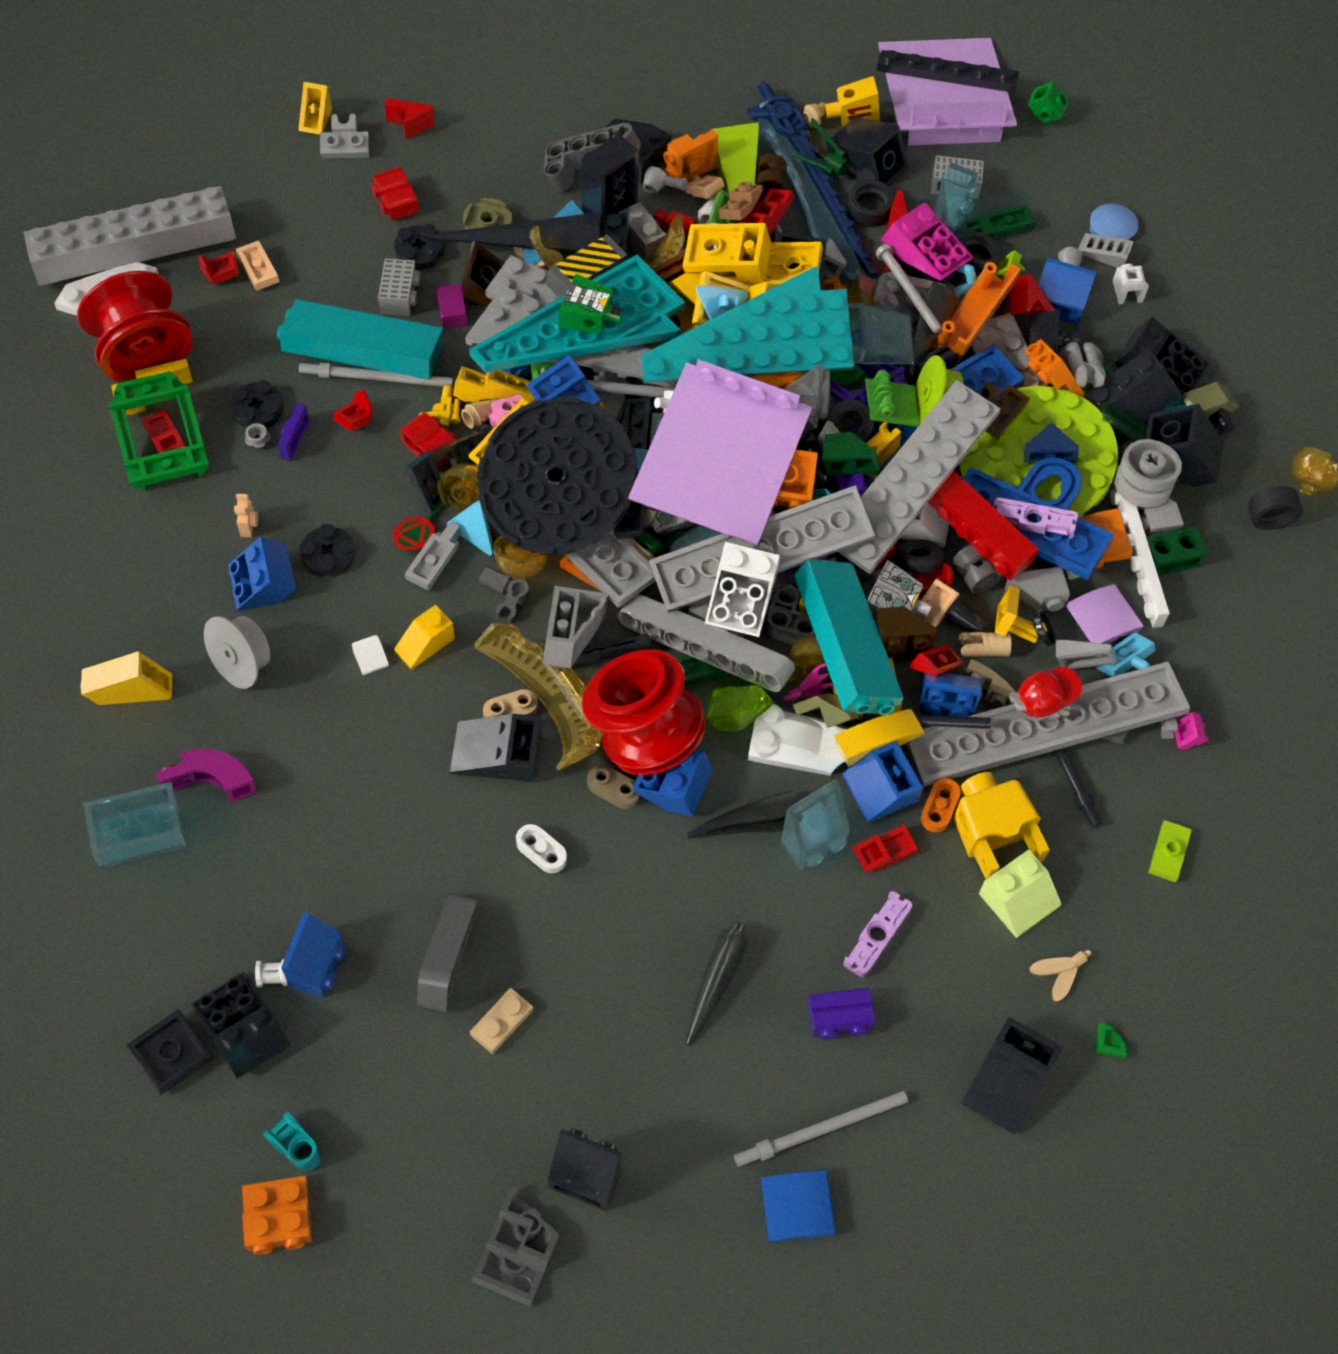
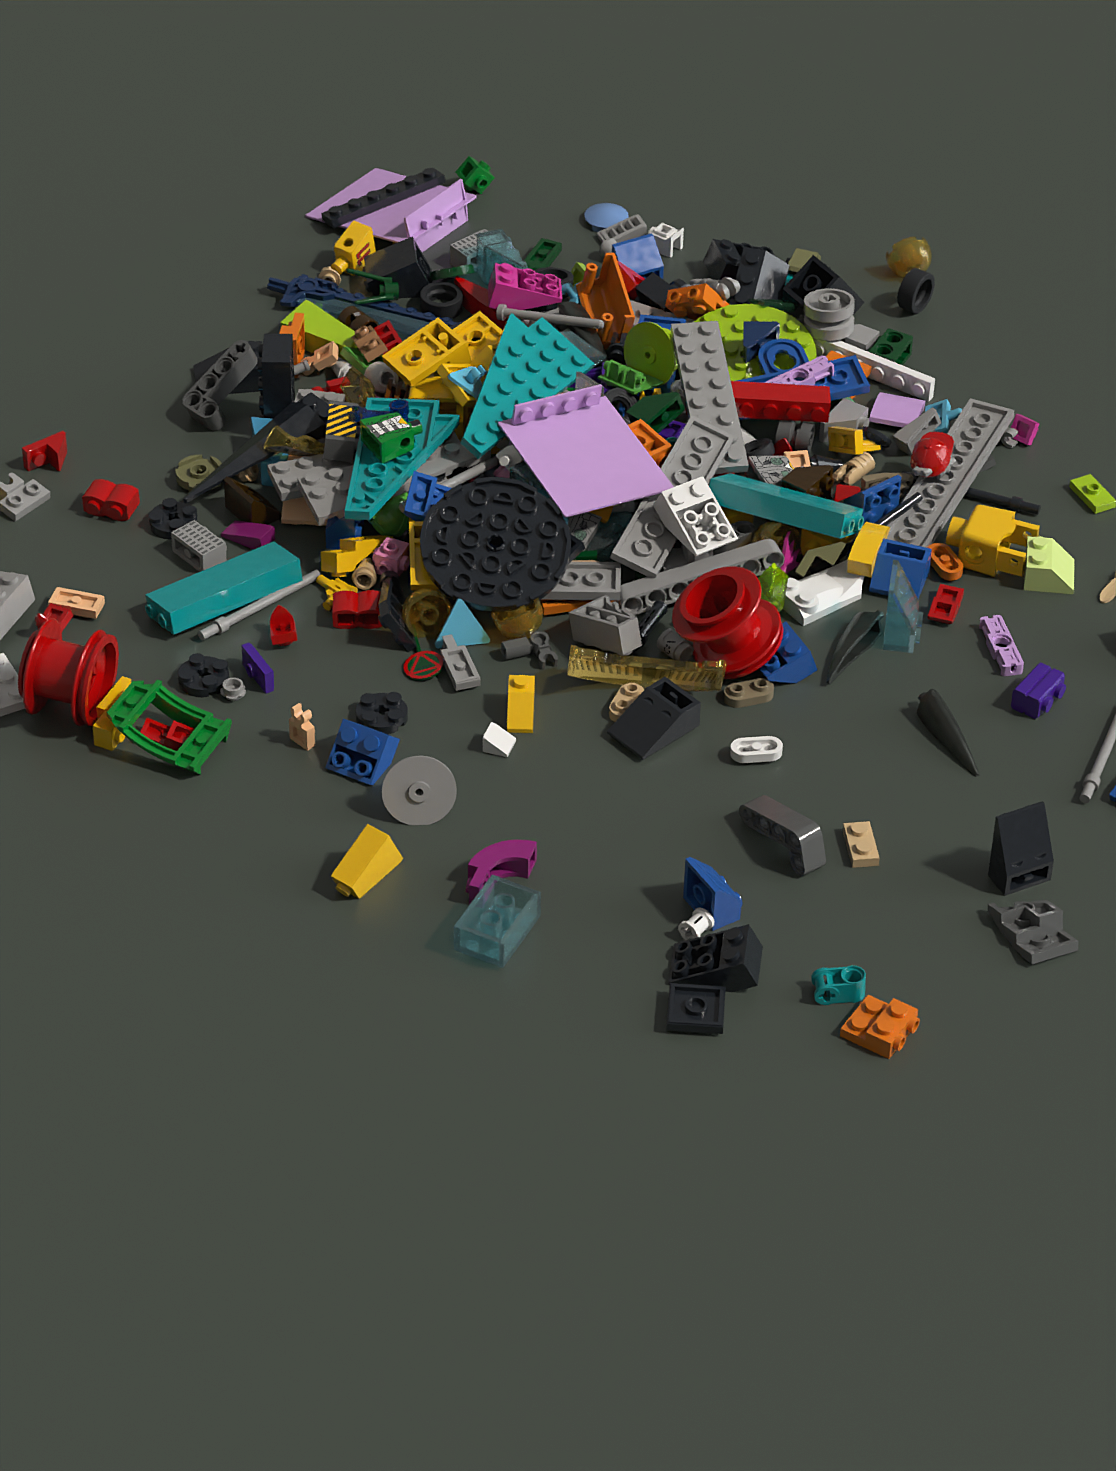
camera: 45 degrees left, 20 degrees down
(622, 286) = (399, 406): none -> clear blue brick
(907, 183) = (452, 272): none -> dark green tile

